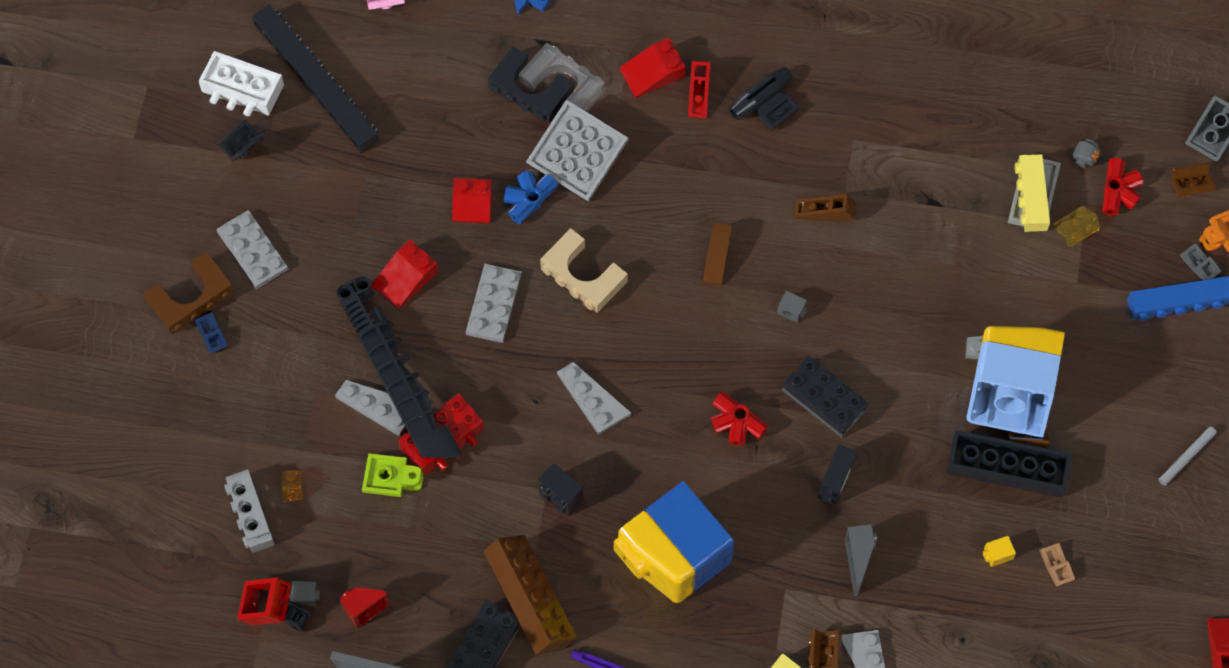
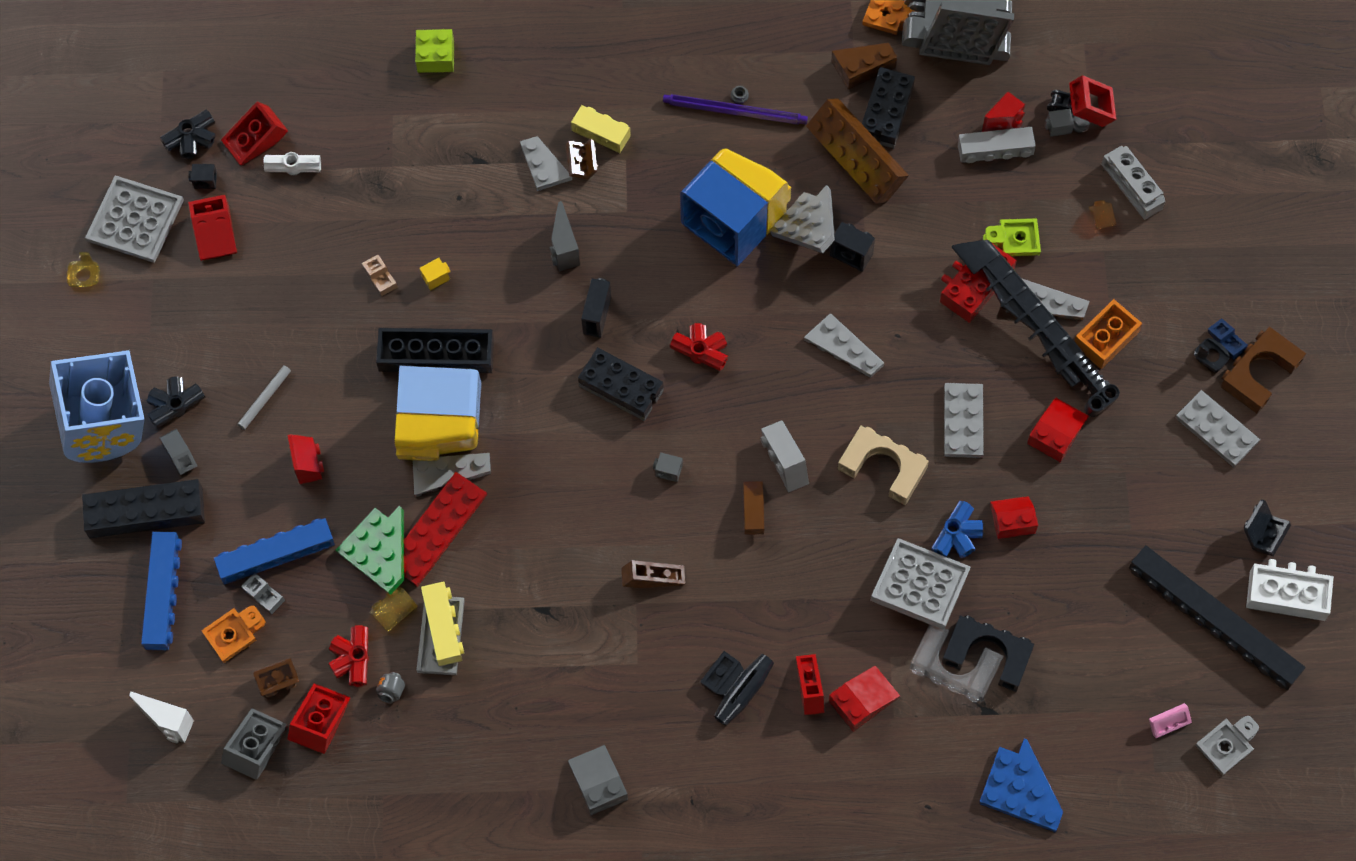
camera: 170 degrees right, 0 degrees up
(236, 309) = (1202, 352): none -> black piece
(329, 352) = (1107, 334): none -> orange brick
(394, 581) = (996, 144): none -> light grey brick
(596, 522) = (808, 222): none -> light grey wing
(678, 295) = (785, 455): none -> light grey wedge
(906, 43) = (598, 780): none -> dark grey slope
(1027, 288) = (439, 526): none -> red plate
(1086, 278) = (378, 548): none -> wing
(1151, 377) = (305, 458): none -> red slope
(1155, 140) = (318, 718): none -> red slope

